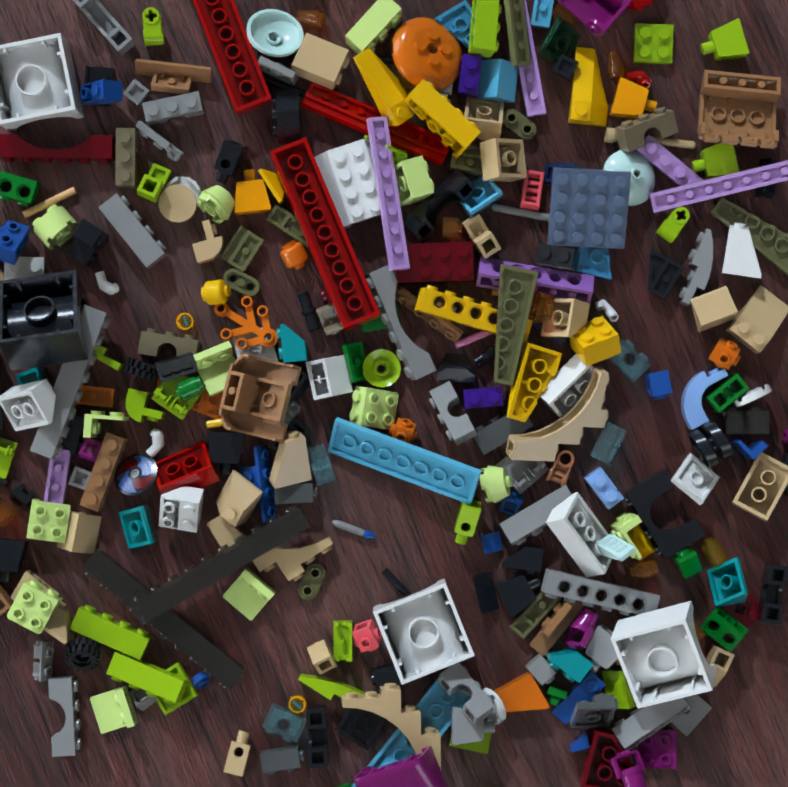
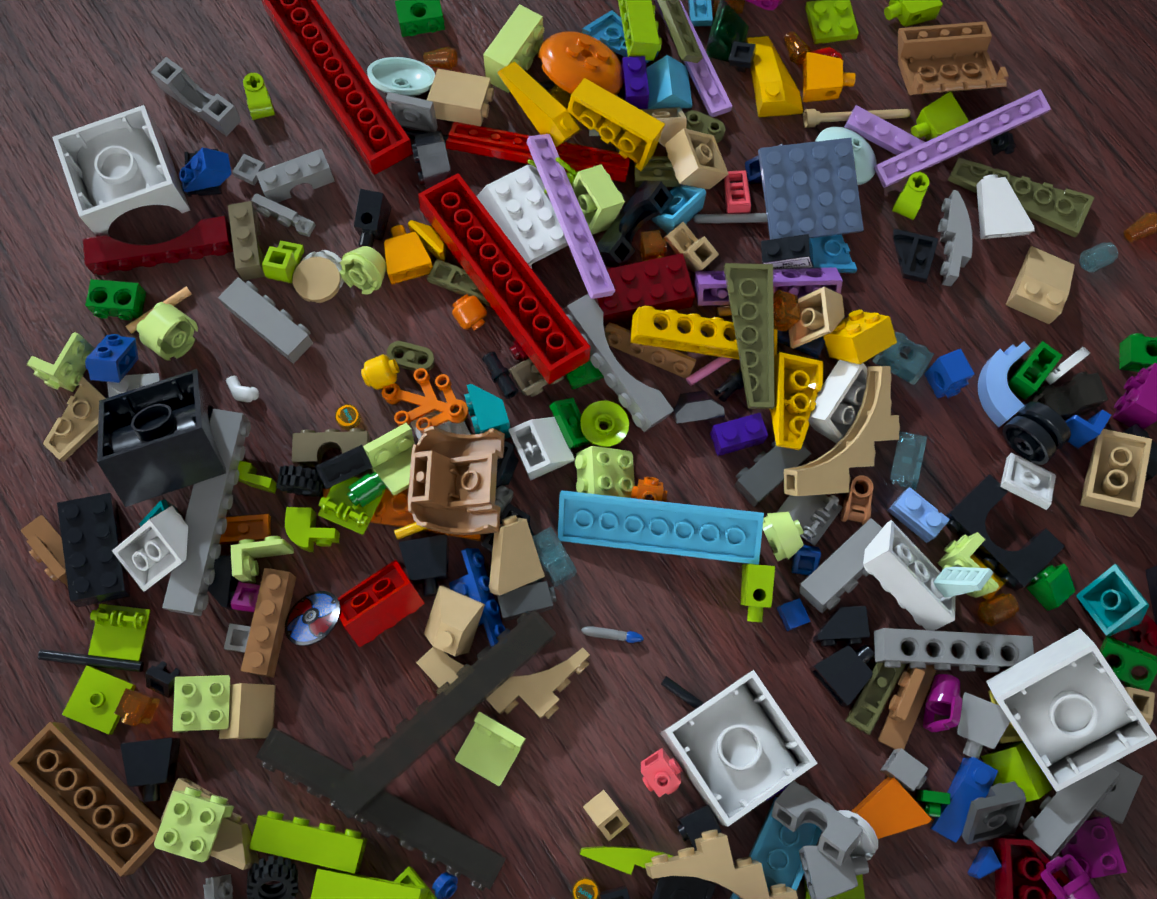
camera: 15 degrees left, 15 degrees down
(57, 478) = (208, 642): lavender plate -> none
(87, 243) = (211, 343): black brick -> none
(138, 526) = (325, 687): teal slope -> none
(158, 442) = (336, 572): white arm -> none
(172, 77) = (288, 142): medium nougat bracket -> none
(181, 509) = (379, 648): white slope -> none
(212, 247) = (365, 323): tan brick -> none
(242, 249) = (404, 317): olive plate -> none
(311, 581) = (570, 714): olive plate -> none
(343, 640) = (630, 787): lime hinge -> none
(459, 428) = (718, 472): light grey arch -> none
(485, 592) = (802, 682): black slope -> none
(571, 661) = (945, 751): teal slope -> none
(607, 309) = (858, 303): white arm -> none
(631, 133) = (839, 105): dark tan arch -> none
(713, 309) = (988, 278): tan slope -> none
(714, 551) = (1080, 567): clear yellow brick -> none
(725, 354) = (1009, 323): orange brick -> none

